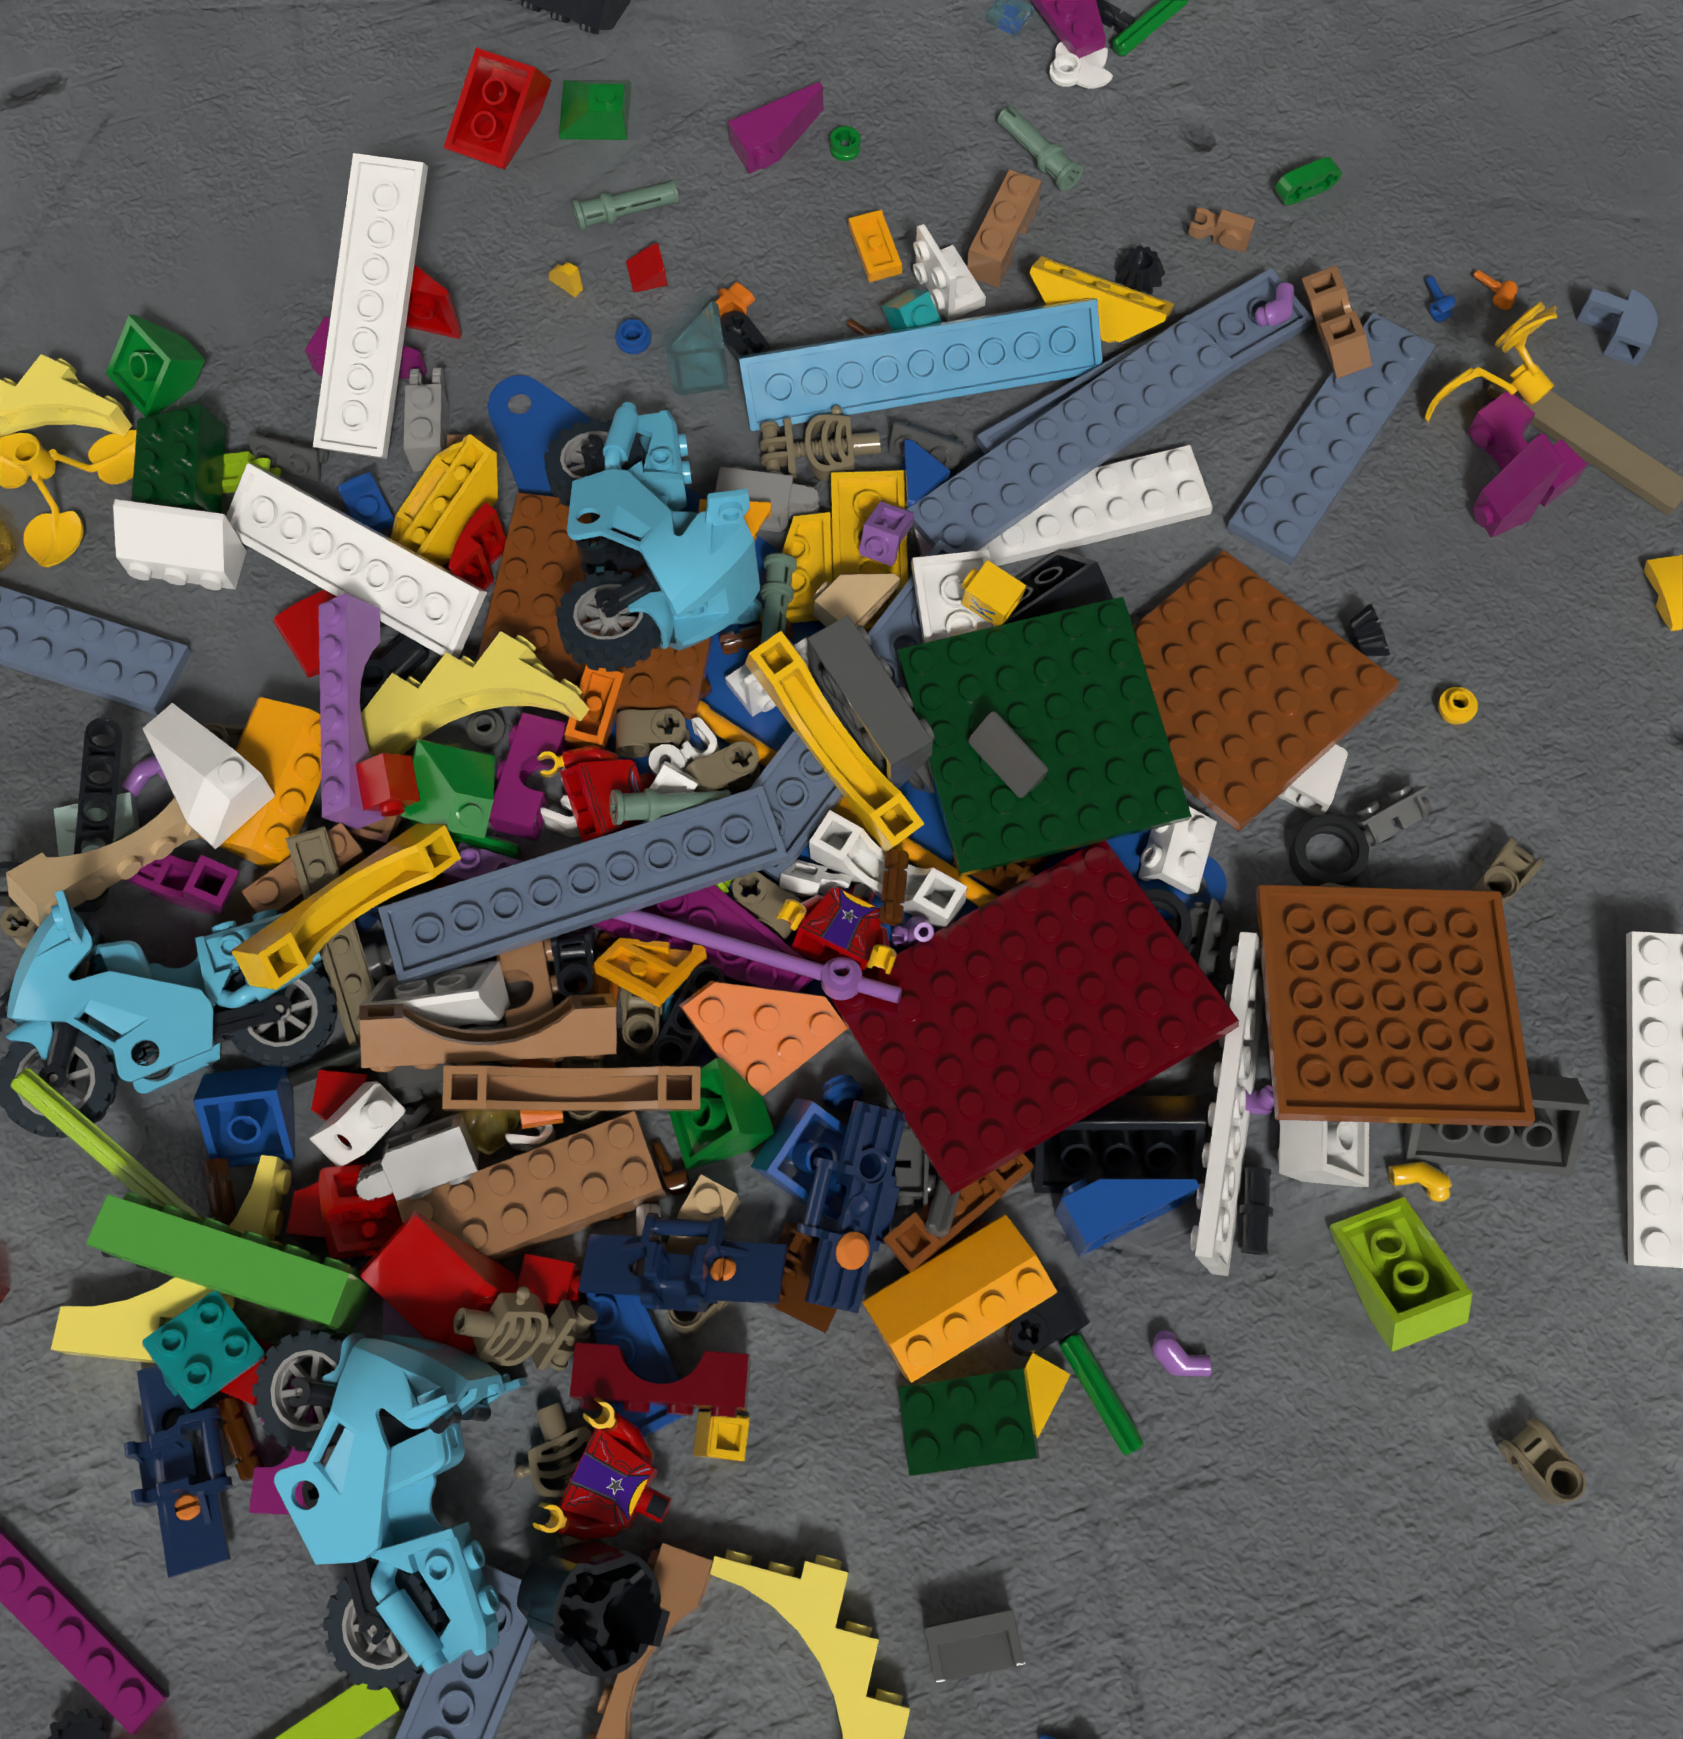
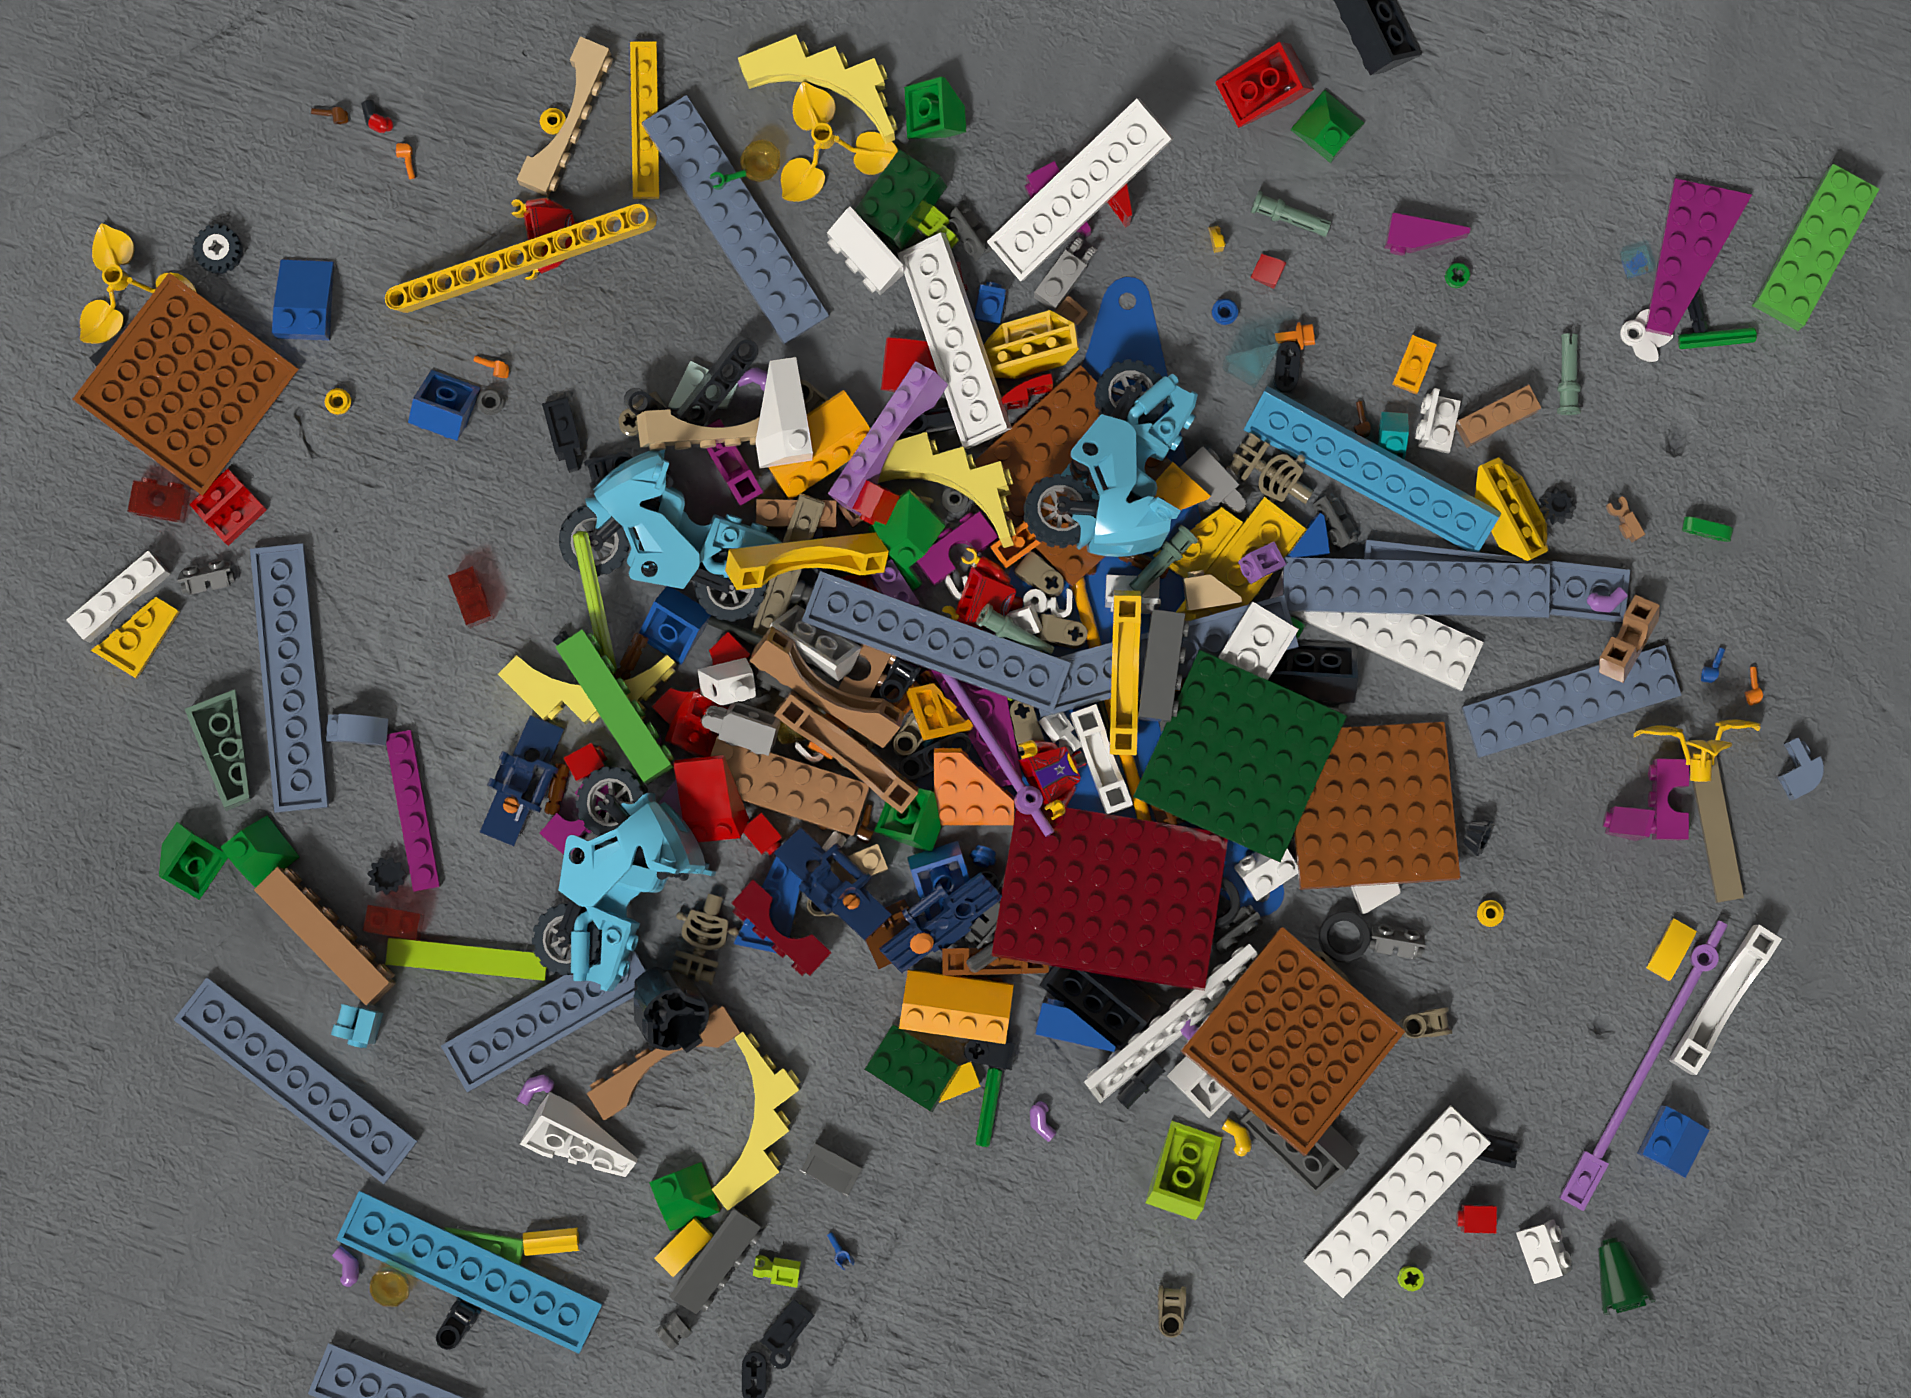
camera: 35 degrees right, 15 degrees up
(203, 1350) = (571, 736): teal bracket -> none
(520, 1328) = (732, 851): dark tan torso -> none
(609, 1483) = (719, 958): torso -> none
(721, 1437) = (788, 978): yellow slope -> none
(894, 887) = (1096, 772): reddish brown axle -> none
(916, 930) = (1088, 802): medium lavender arm -> none
(992, 593) = (1275, 659): yellow brick -> none
(1008, 755) = (1205, 757): dark grey slope -> none

